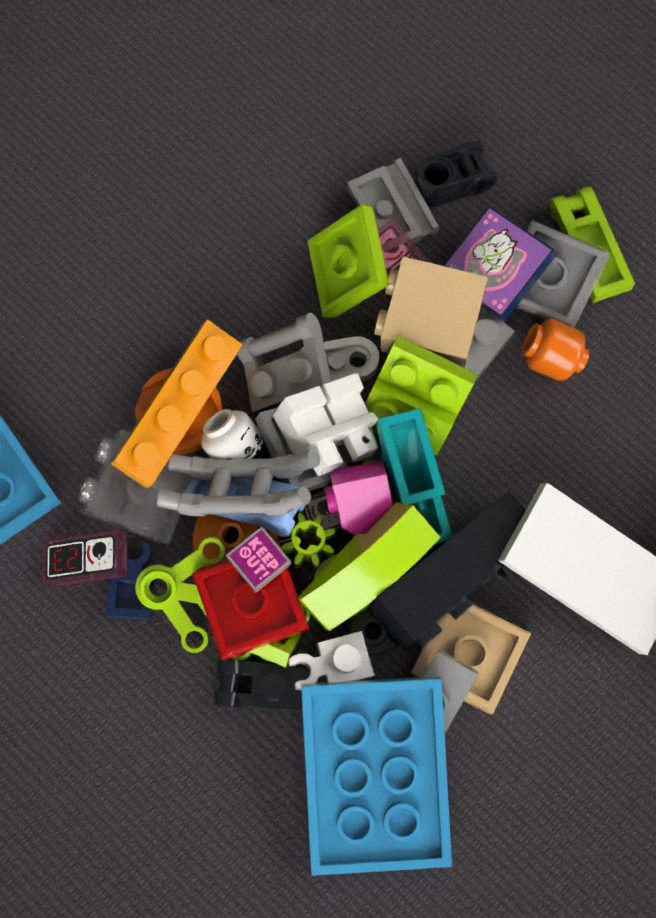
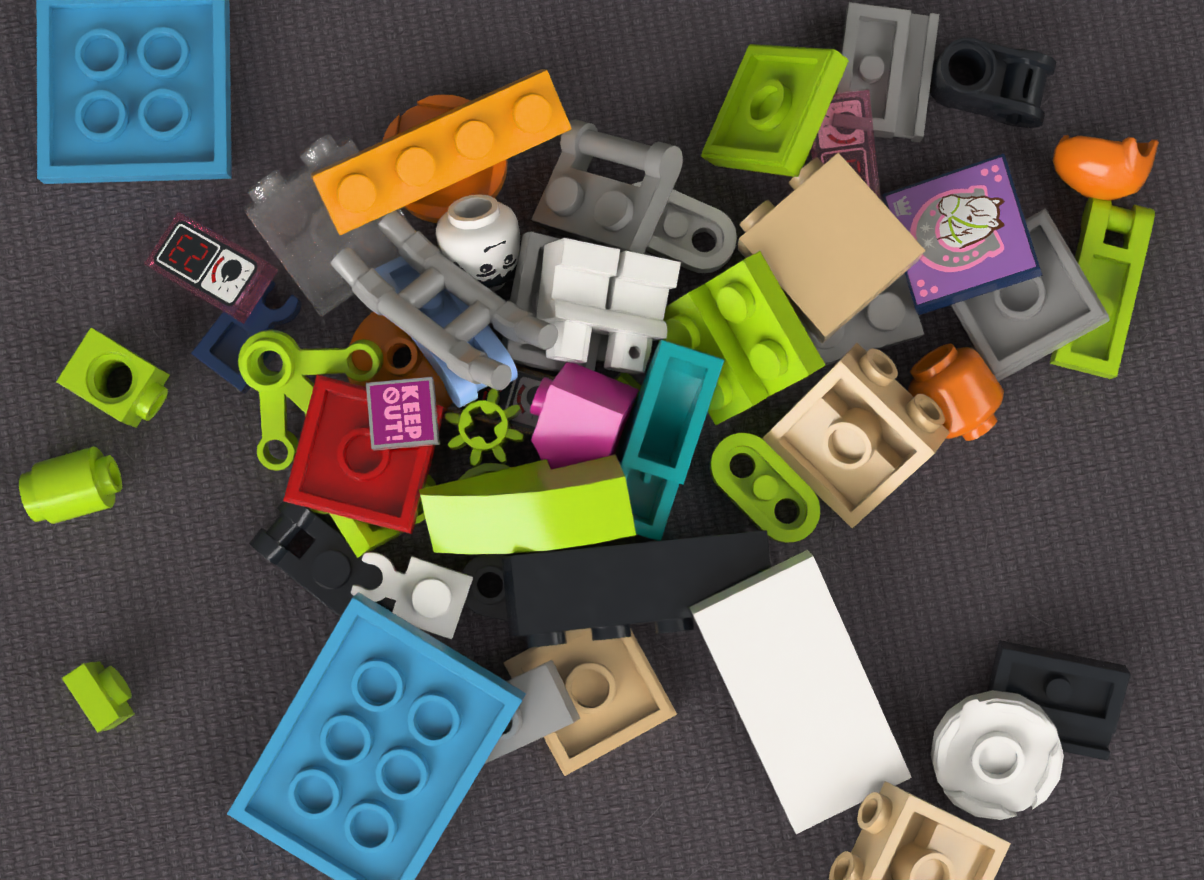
camera: 35 degrees right, 10 degrees up
(50, 659) = (88, 376): none -> lime brick
(83, 743) = (70, 486): none -> lime brick
(186, 855) = (100, 694): none -> lime plate
(488, 469) = (765, 487): none -> lime plate
(519, 406) = (858, 433): none -> tan plate
(545, 178) = (1103, 166): none -> orange hair

